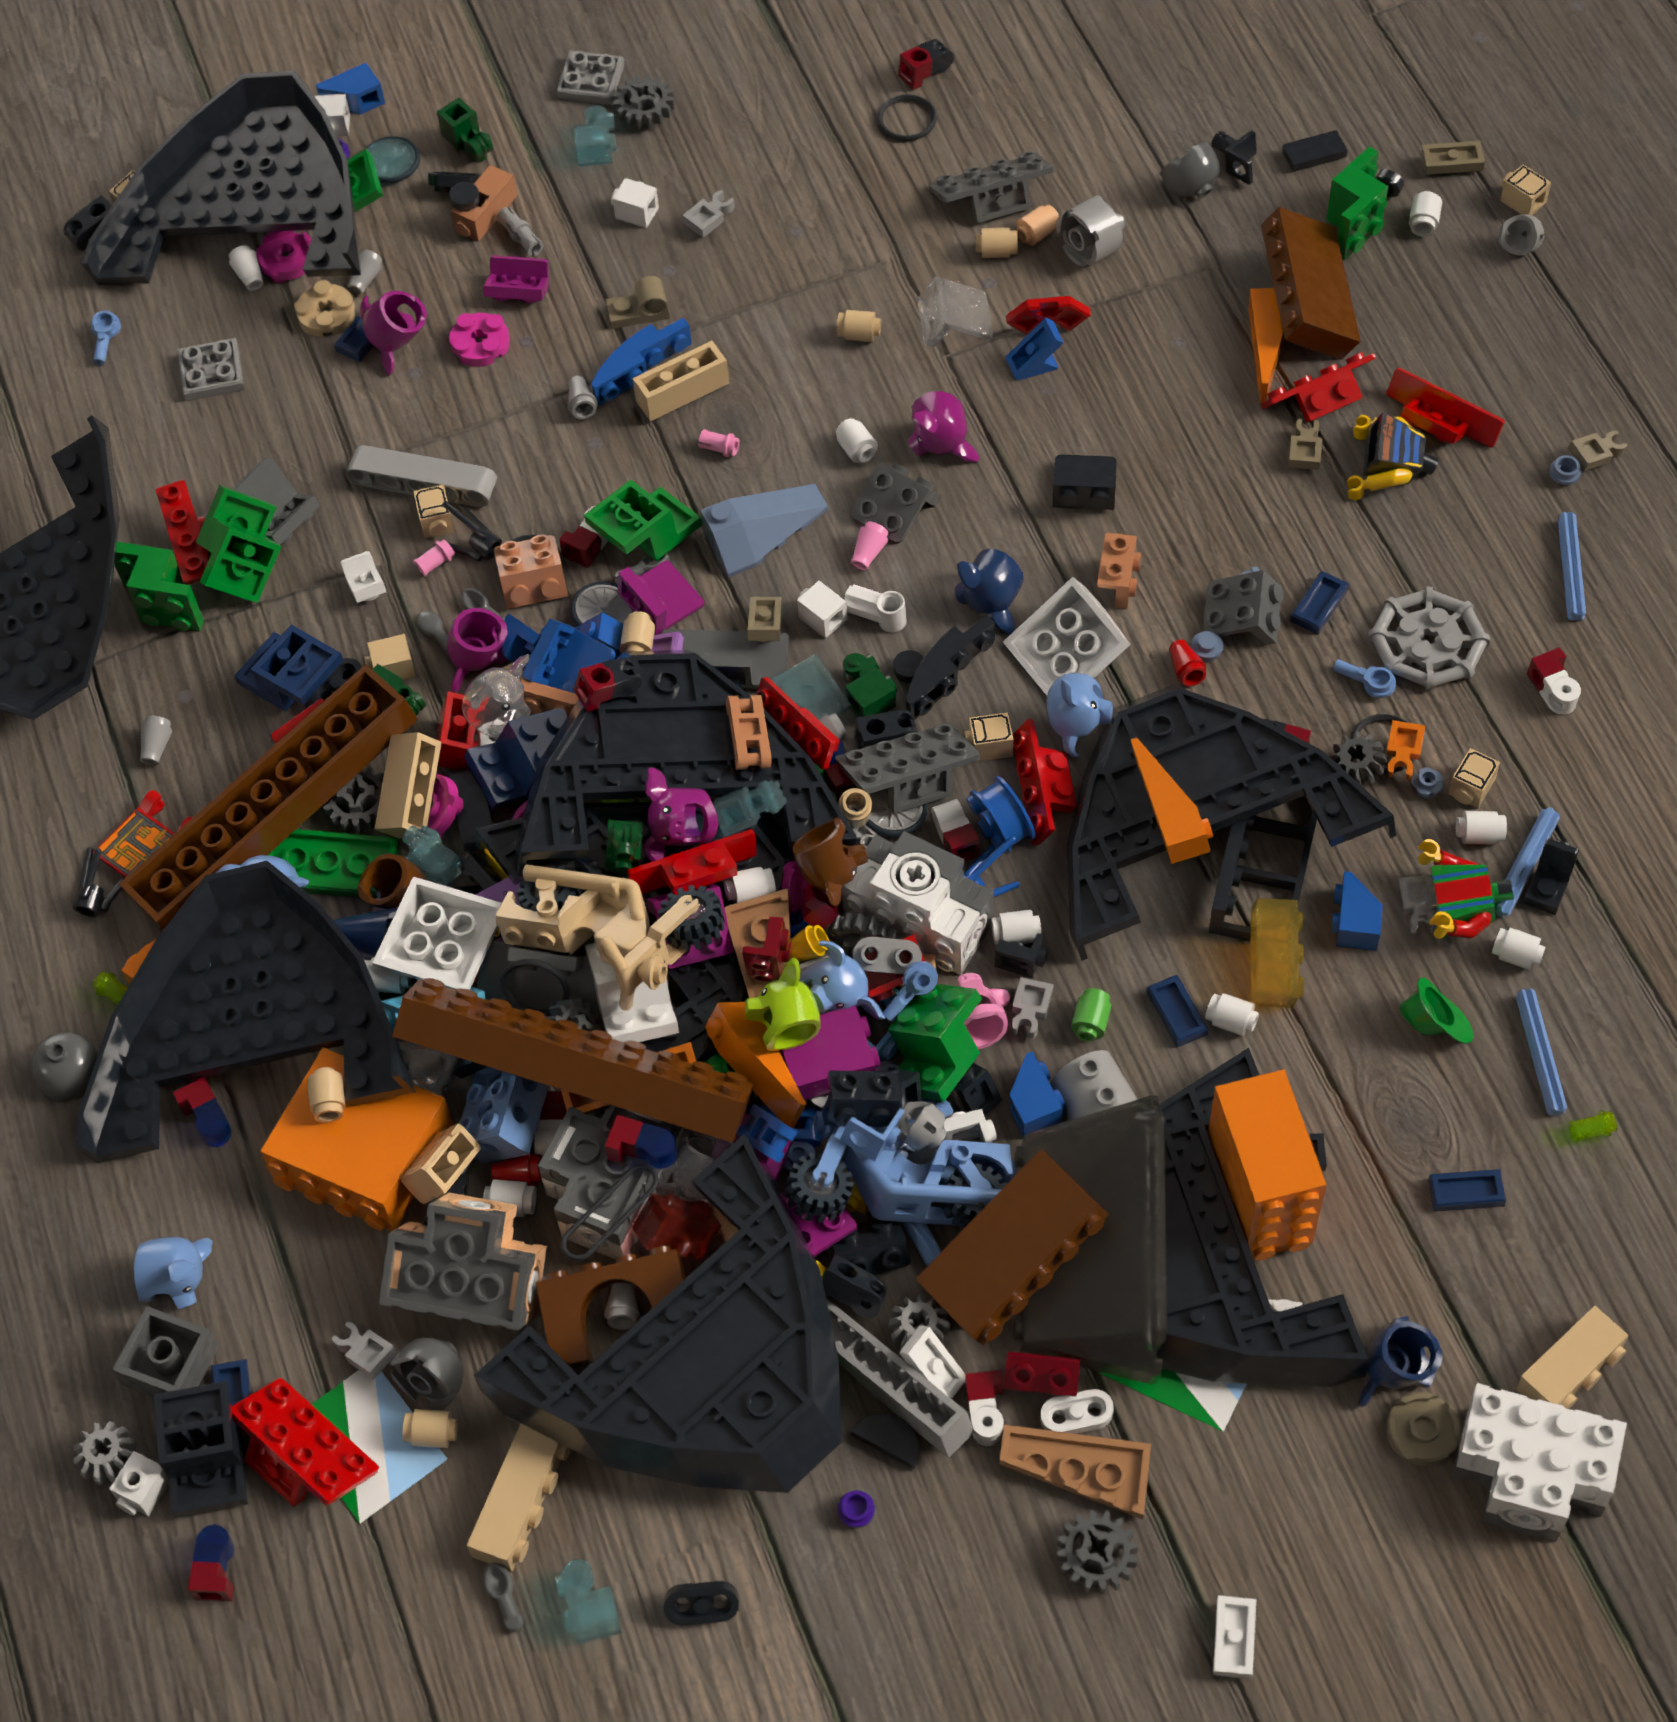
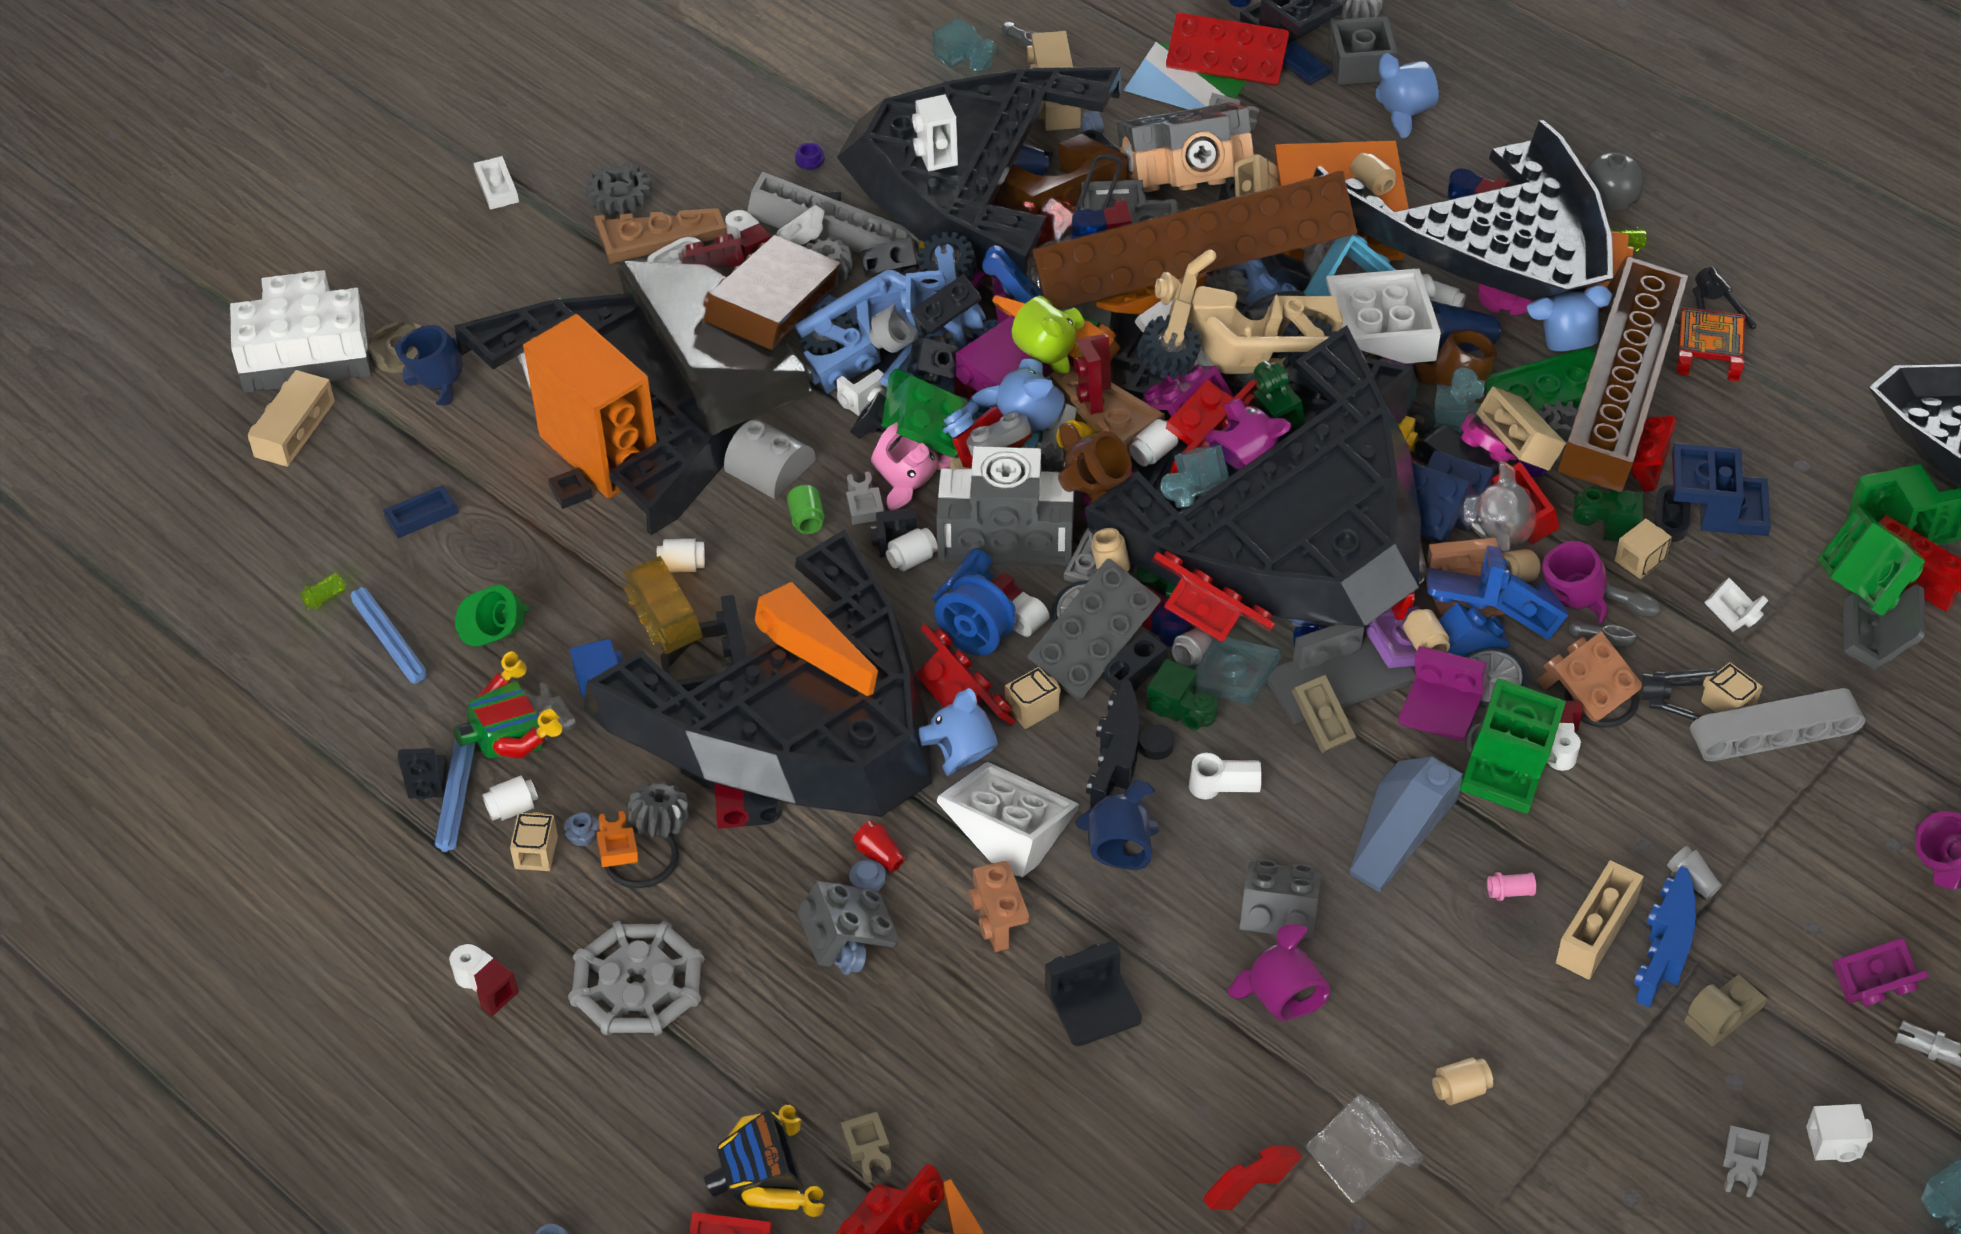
camera: 150 degrees right, 10 degrees down
(154, 738) = (1786, 412): light grey cone -> none
(429, 1428) = (1145, 88): tan brick -> none
(430, 1370) = (1166, 98): dark grey cylinder -> none
(434, 557) = (1692, 654): bright pink pin -> none
(479, 325) = (1866, 884): dark pink plate -> none
(606, 682) = (1387, 487): leg -> none
(702, 1605) = (876, 78): black plate -> none
(749, 731) = (1238, 528): nougat plate -> none
(750, 1314) = (935, 132): none -> white brick
(821, 609) = (1278, 751): white brick -> none
(856, 441) = (1367, 943): white brick -> none
(869, 543) = (1276, 838): bright pink cone -> none
(1032, 1099) = (820, 428): blue slope -> none
(1035, 351) = (1238, 1132): blue slope -> none
(1177, 1011) = (734, 550): dark blue tile -> none
(1319, 602) = (771, 975): dark blue tile -> none
(1377, 681) = (674, 907): medium blue plate -> none
(1518, 948) = (436, 703): white brick -> none
(1571, 566) = (507, 1126): medium blue axle -> none

